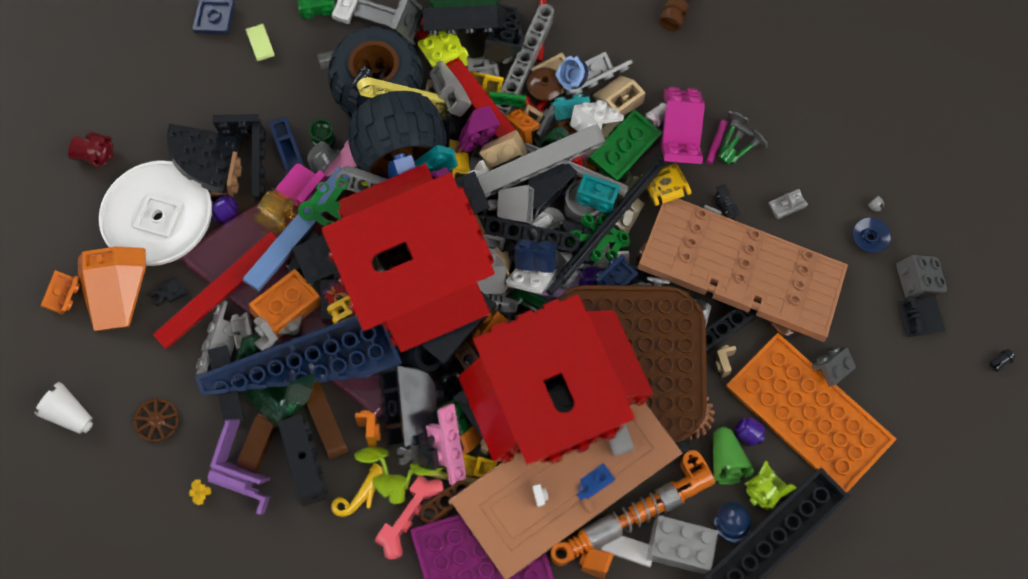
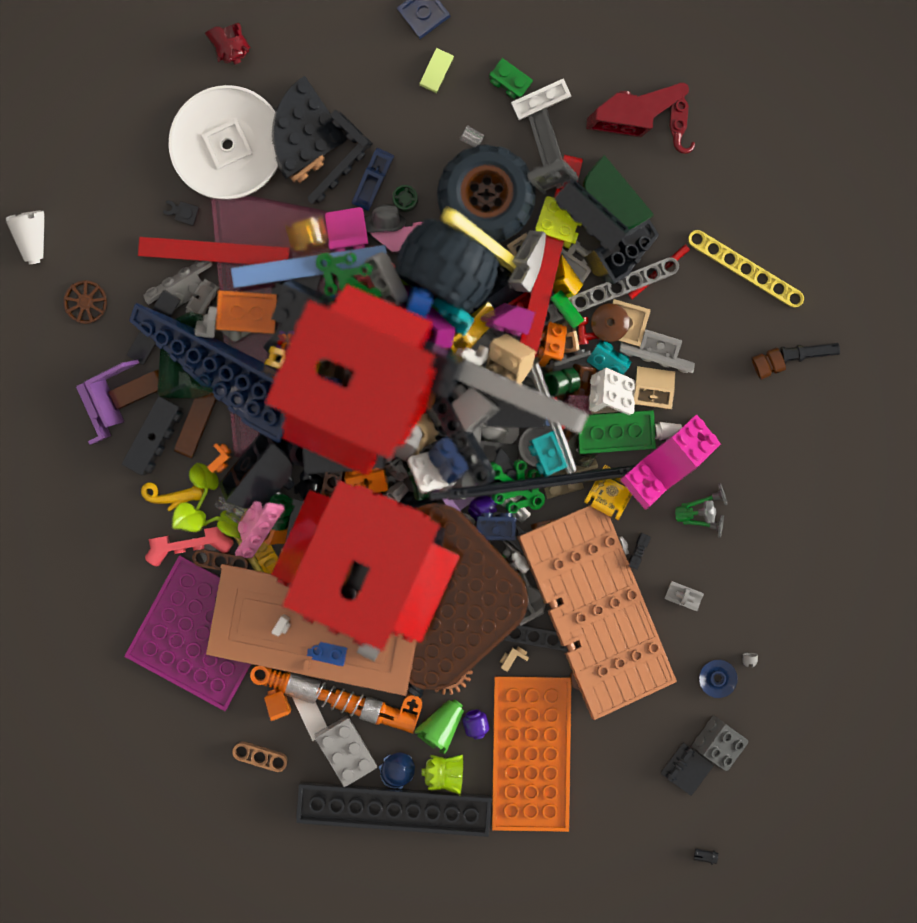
camera: 45 degrees right, 20 degrees up
(59, 292) = (105, 137): orange bracket -> none
(111, 284) = (143, 170): orange wedge -> none
(199, 492) = (65, 385): yellow plant -> none
(224, 209) = (279, 187): dark purple head -> none
(362, 73) = (461, 198): black pin -> none
(426, 453) = (236, 520): black plate -> none
(572, 73) = (634, 339): light blue hair -> none
(716, 142) = (689, 494): dark pink piece -> none
(835, 365) = (584, 740): dark grey bracket -> none

